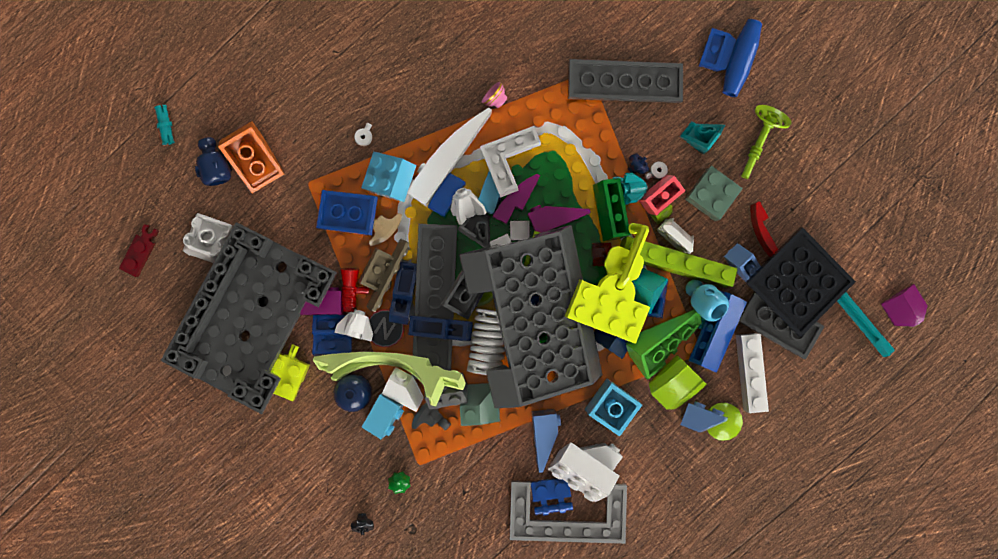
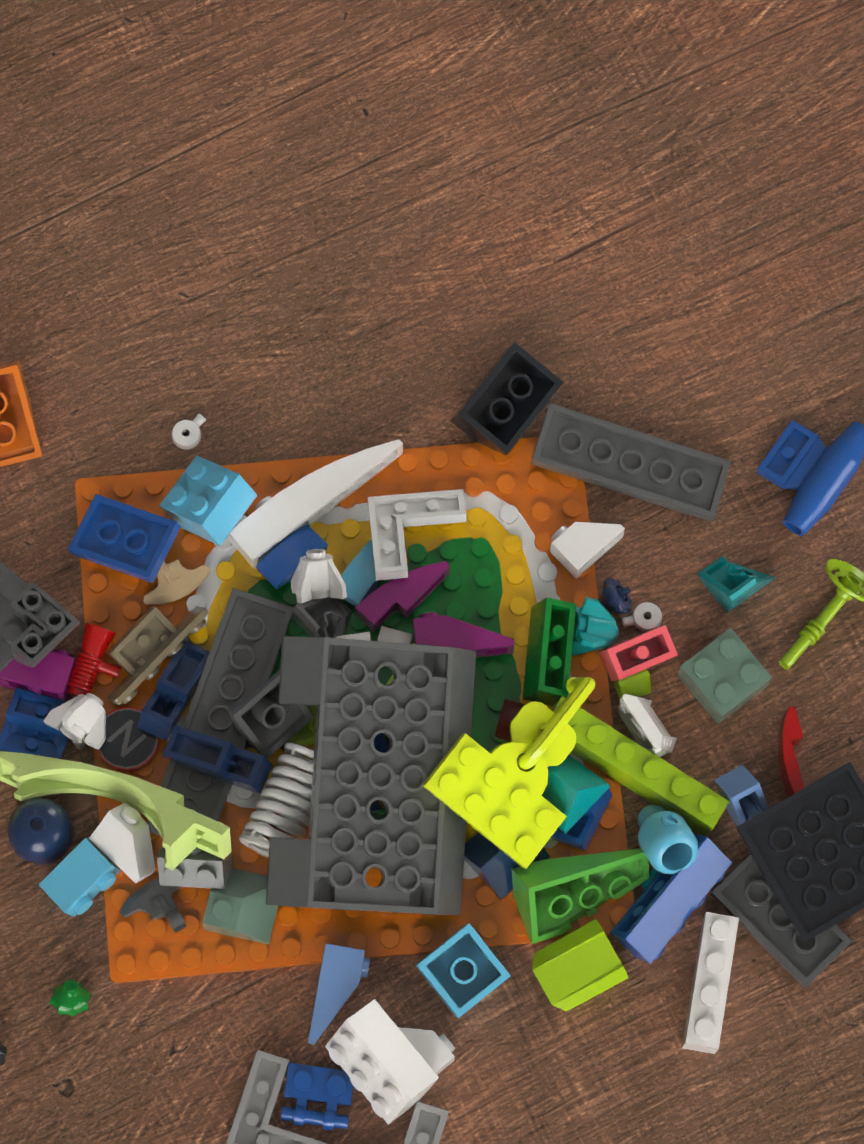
camera: 15 degrees right, 15 degrees down
(495, 96) = (416, 429): bright pink piece -> none
(543, 64) = (507, 400): none -> black slope
(612, 139) = (584, 544): none -> white slope
(701, 419) = (604, 1034): medium blue slope -> none
(729, 428) = (642, 1054): lime dish -> none

